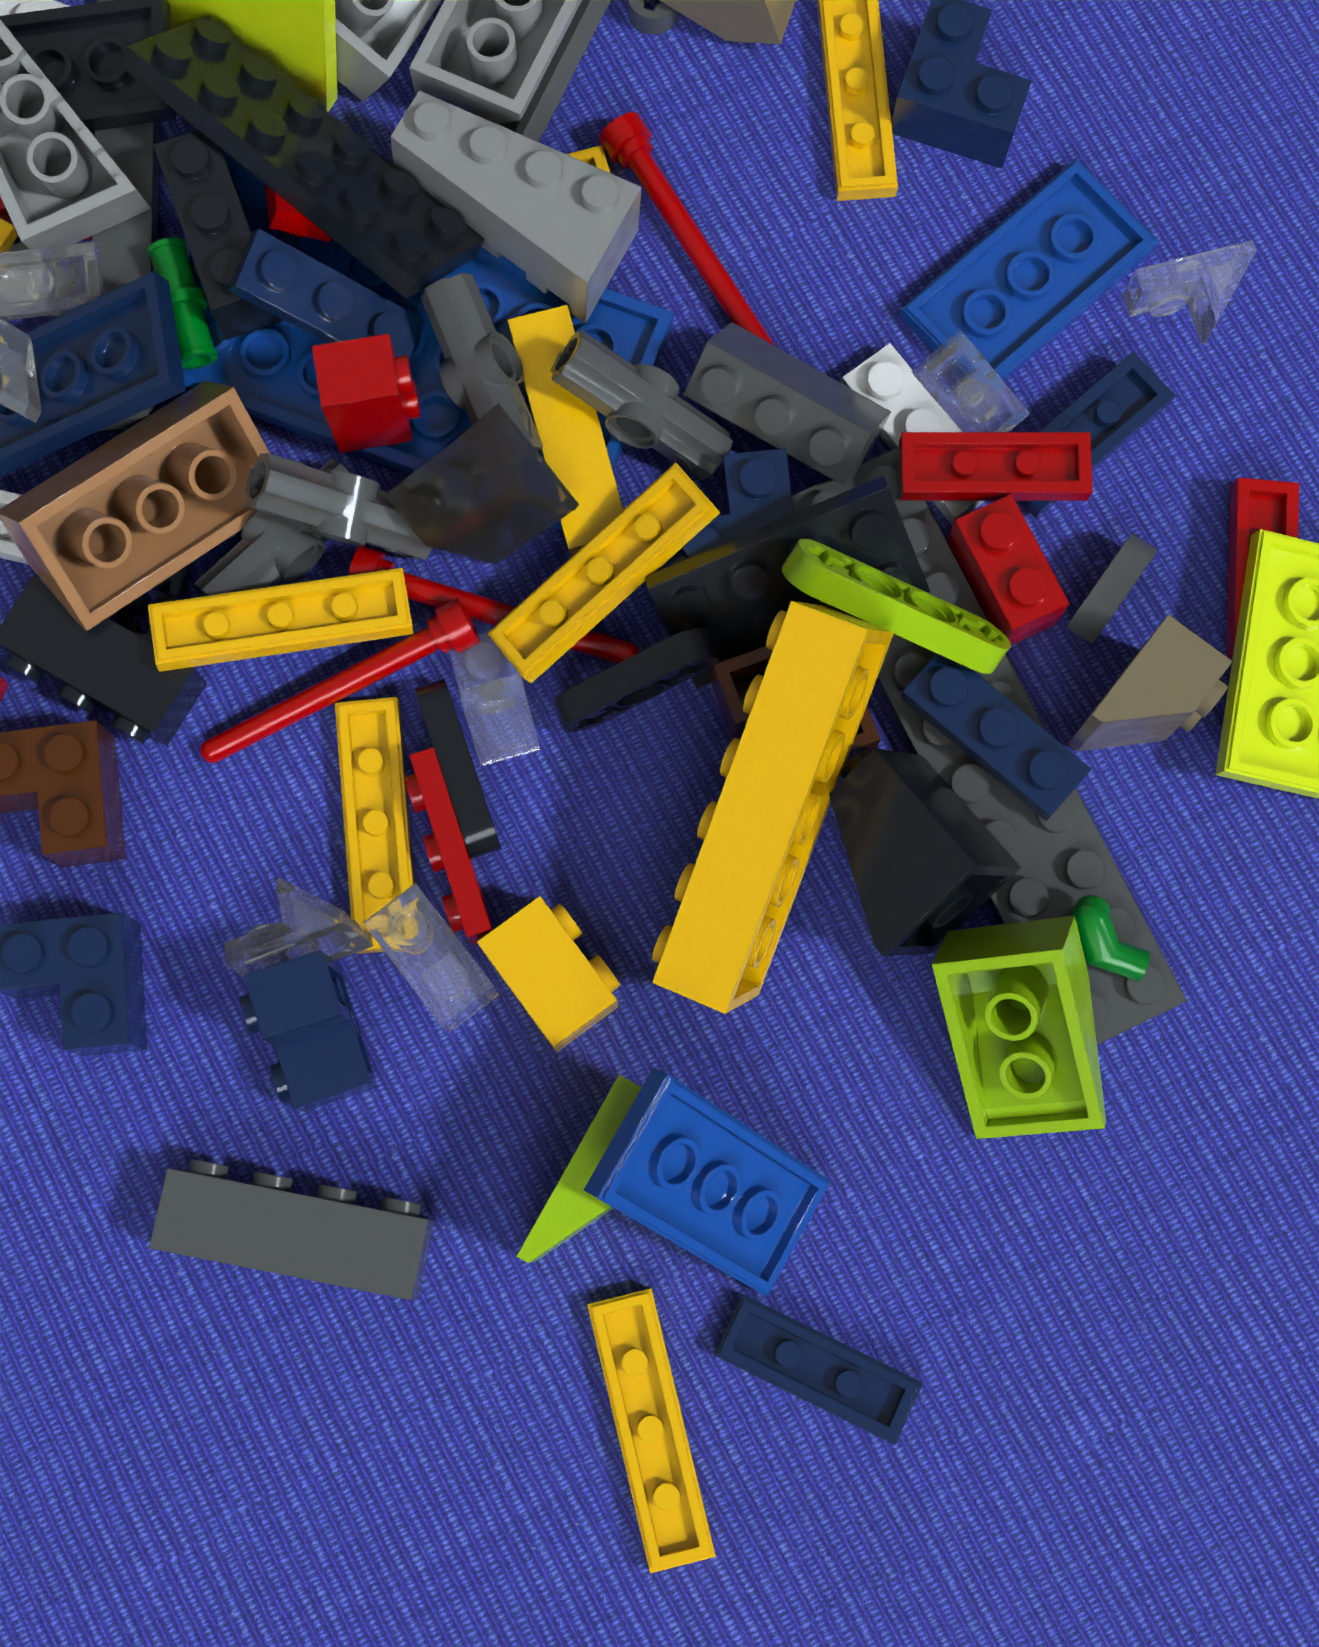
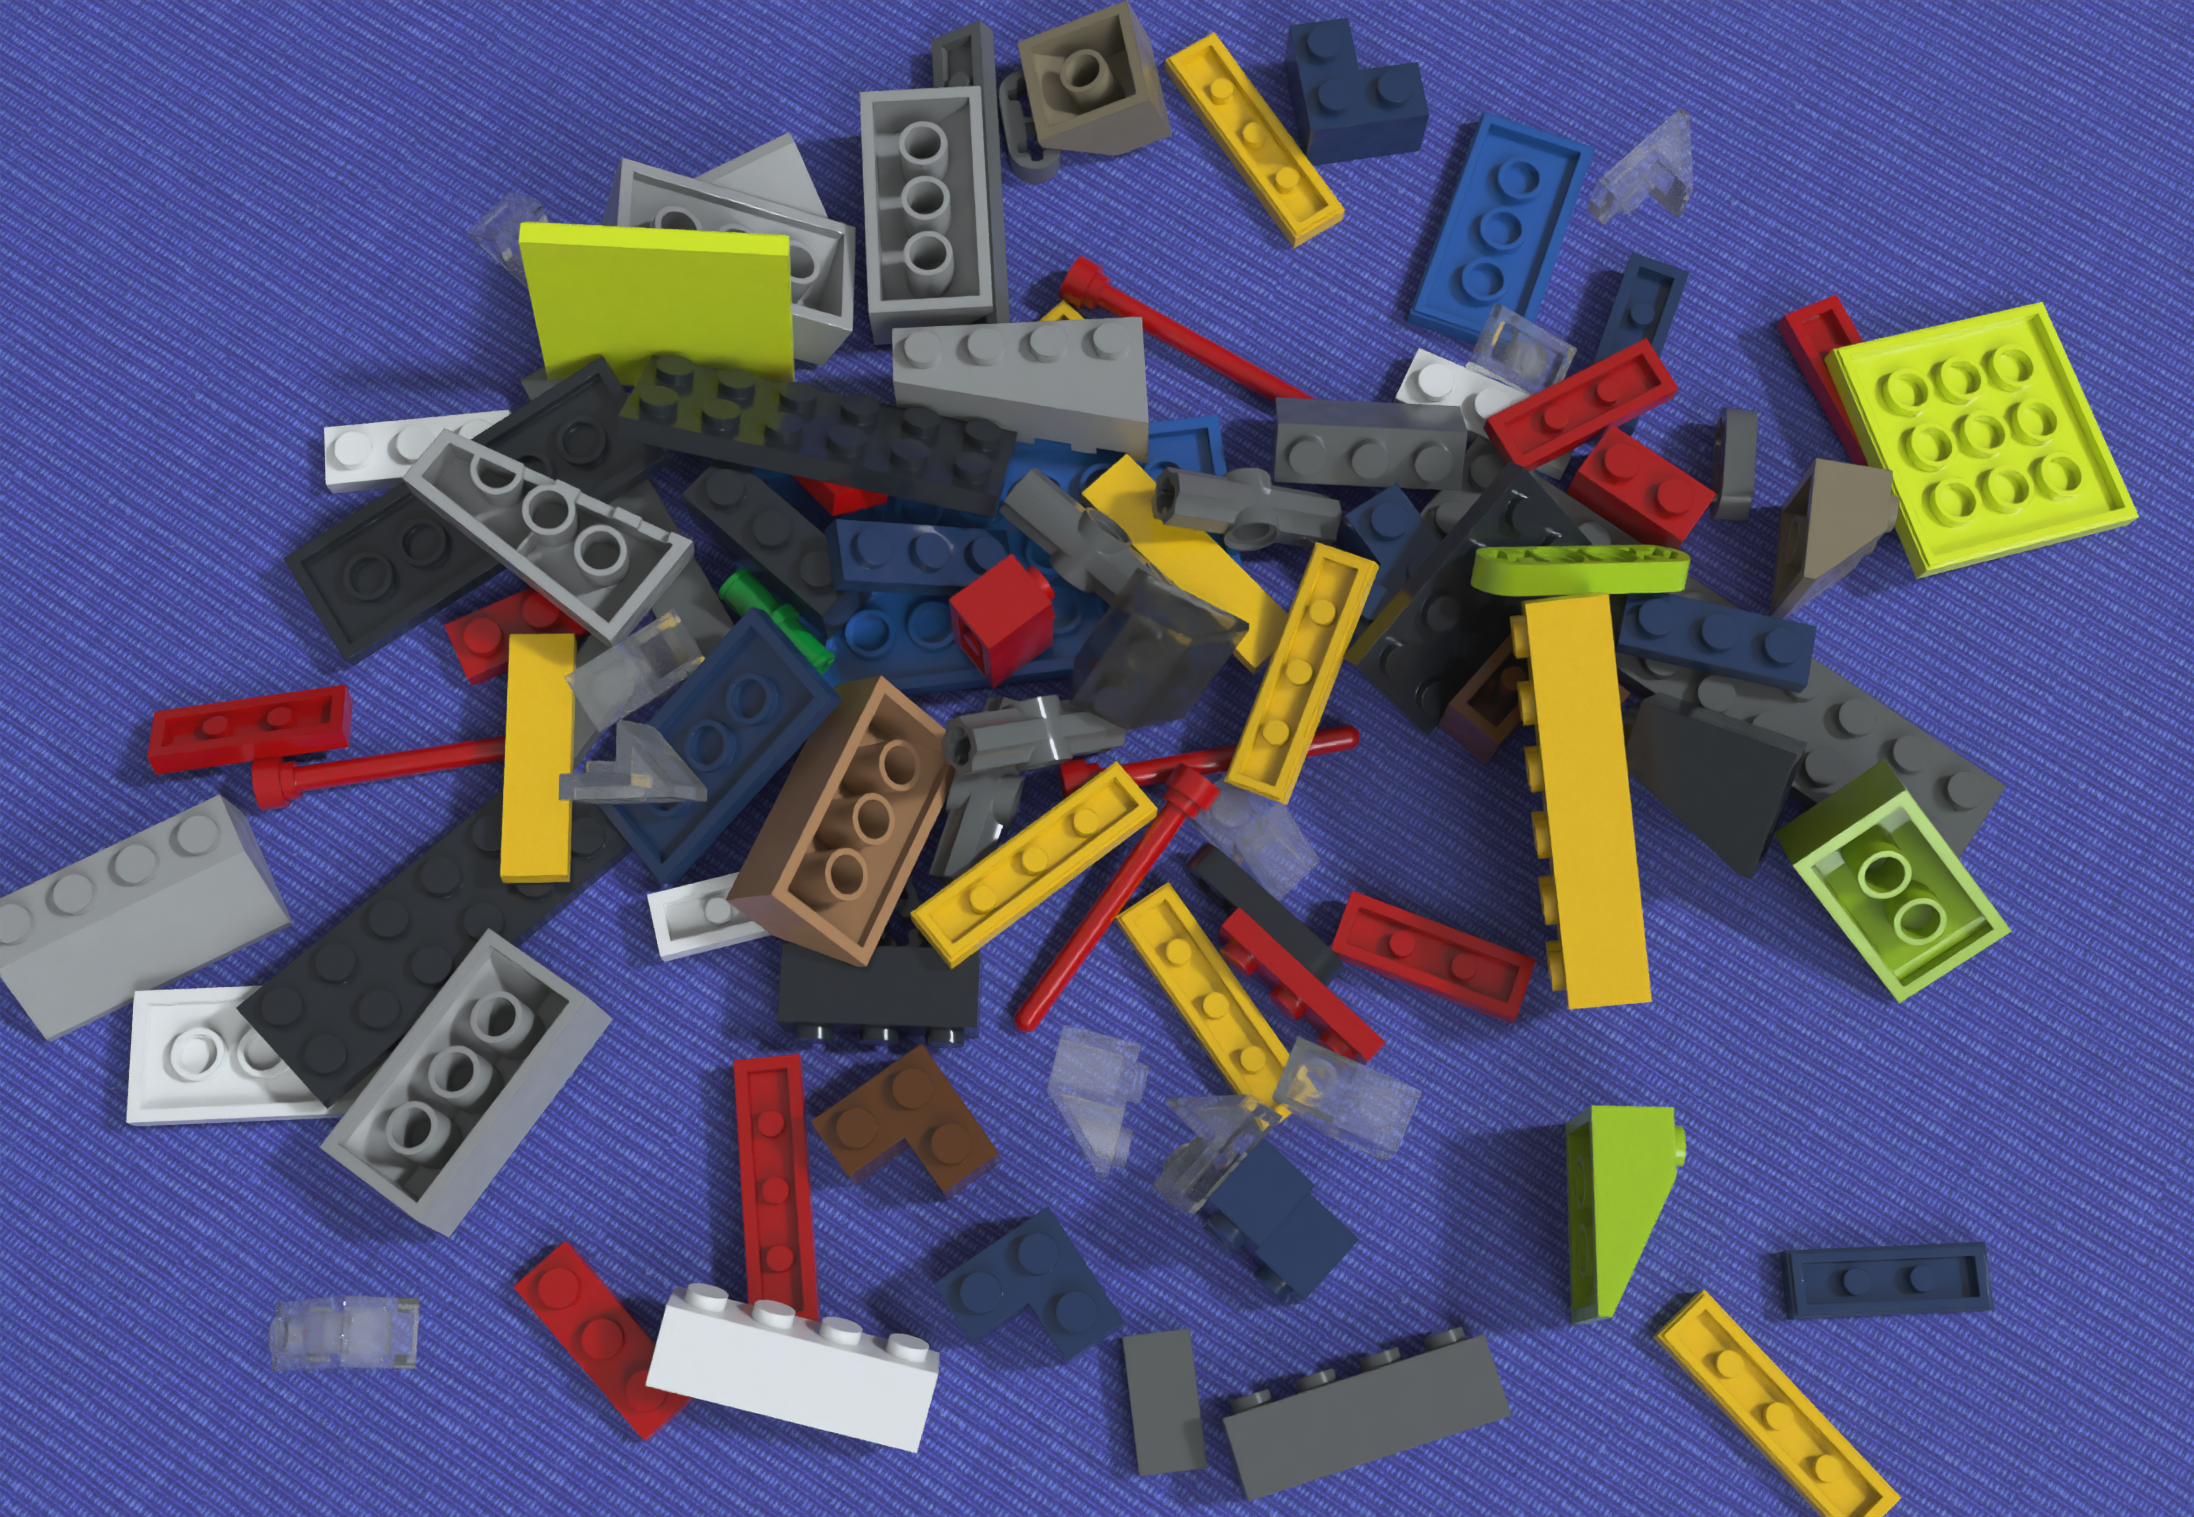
camera: 30 degrees left, 5 degrees down
(140, 1130) = (1164, 1402): none -> dark grey tile
(224, 842) = (1091, 1091): none -> clear slope
(550, 973) = (1454, 1055): yellow brick -> none
(583, 879) = (1432, 957): none -> red plate
(636, 680) = (1383, 753): black beam -> none
(707, 1182) = (1717, 1161): blue tile -> none
(1101, 943) = (1914, 771): green arm -> none

